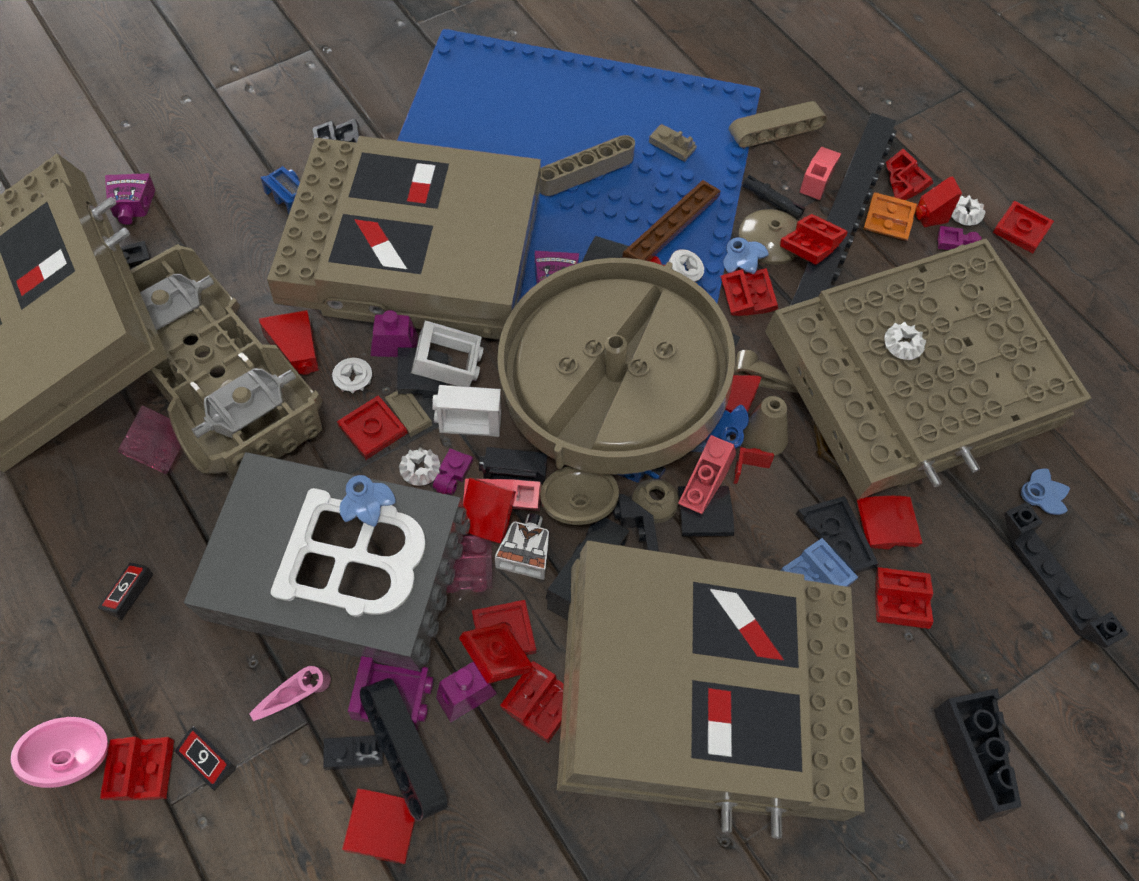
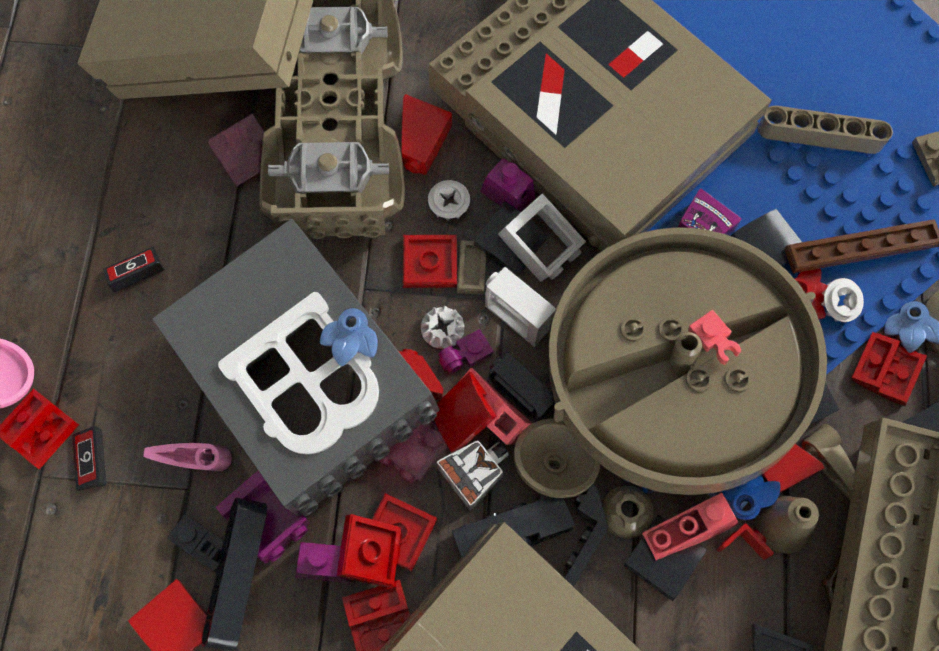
camera: 40 degrees right, 10 degrees up
(628, 329) = (714, 335): none -> coral plate

